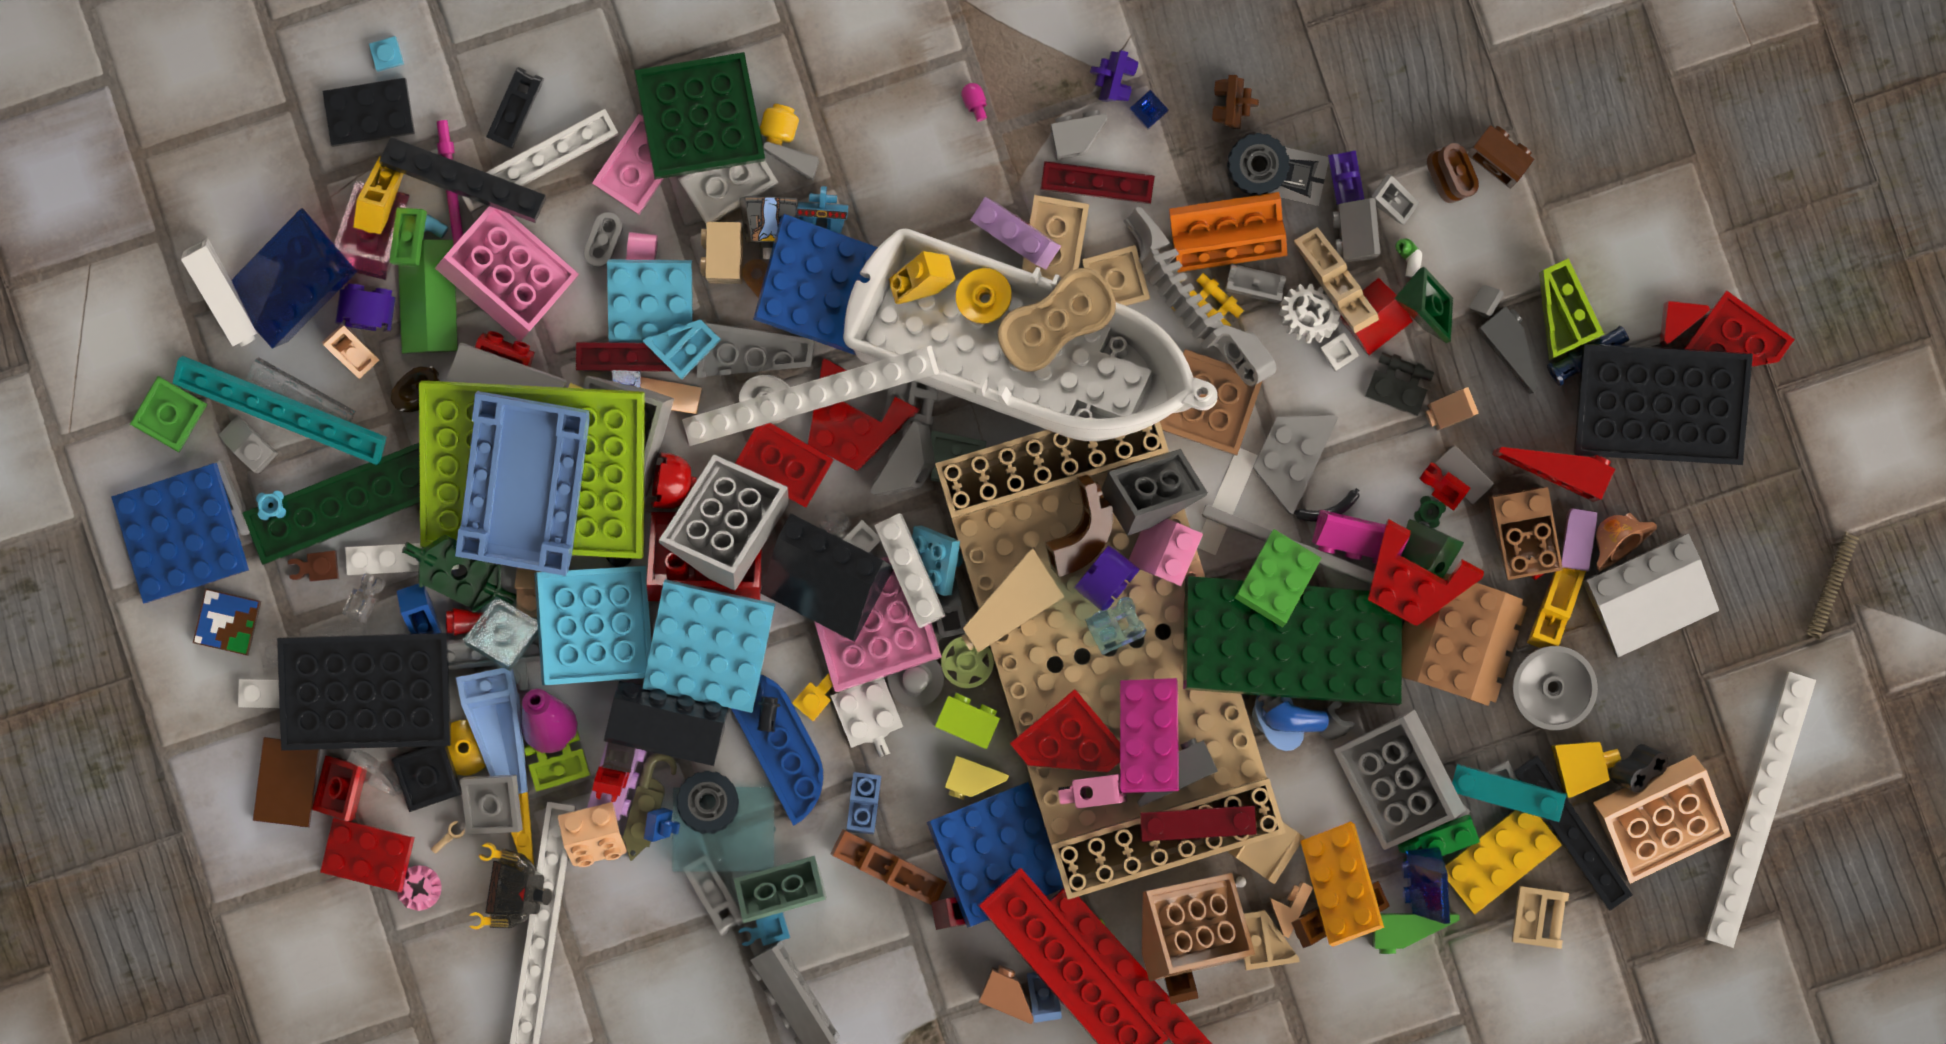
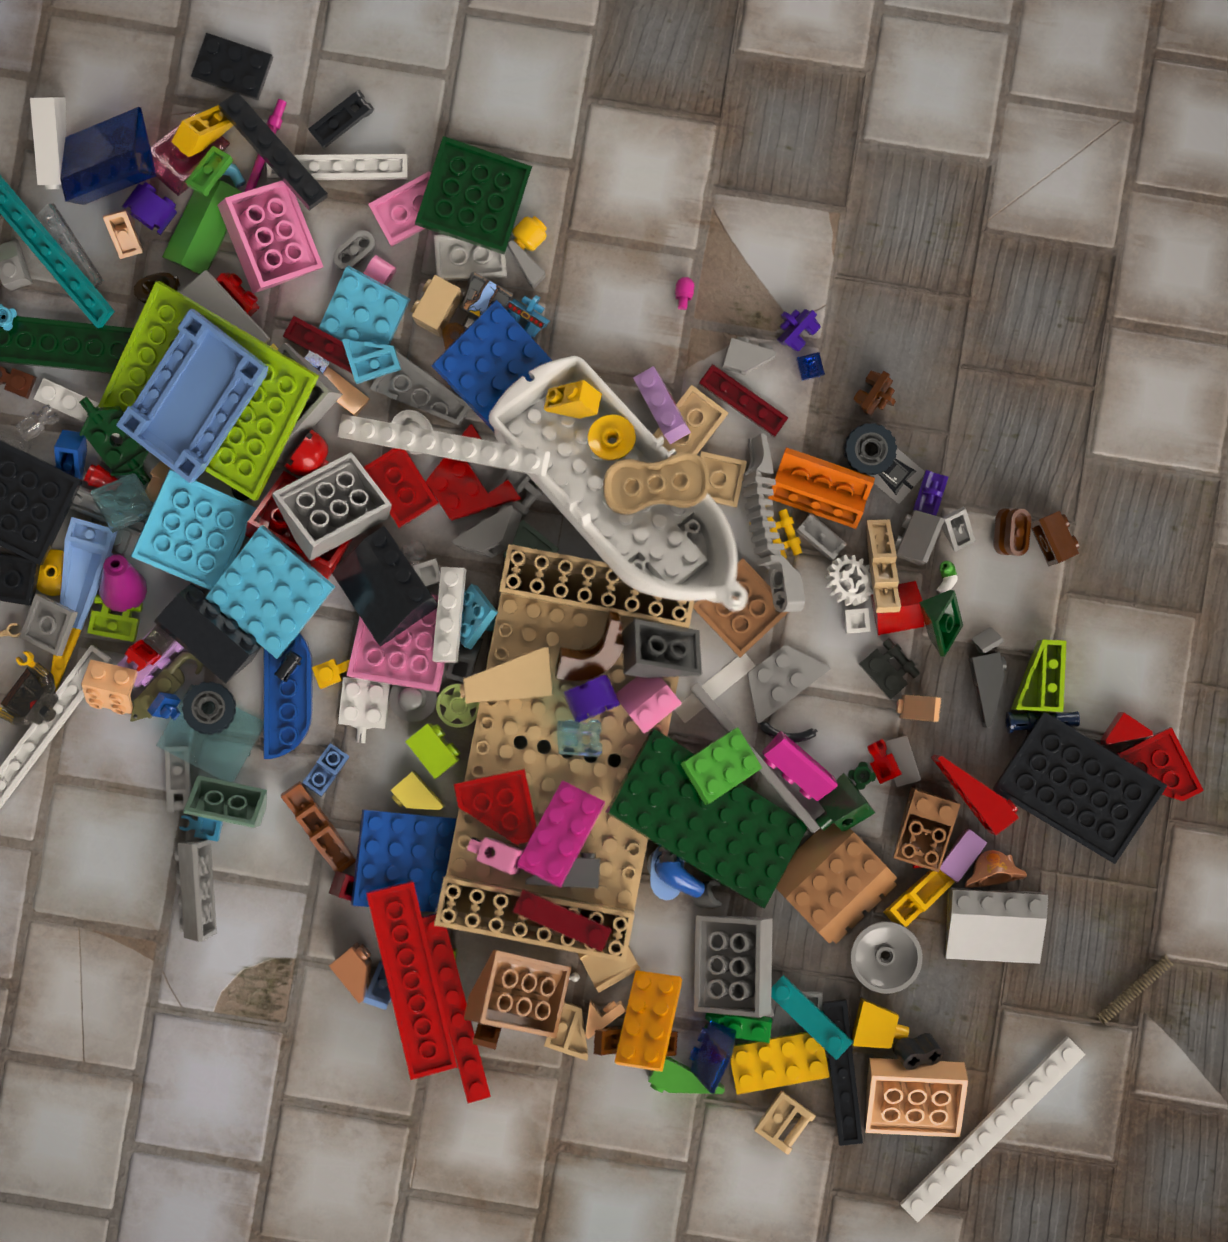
camera: 30 degrees right, 0 degrees up
(386, 54) = (268, 30): medium azure plate -> none
(1410, 589) = (816, 825): red wing -> none

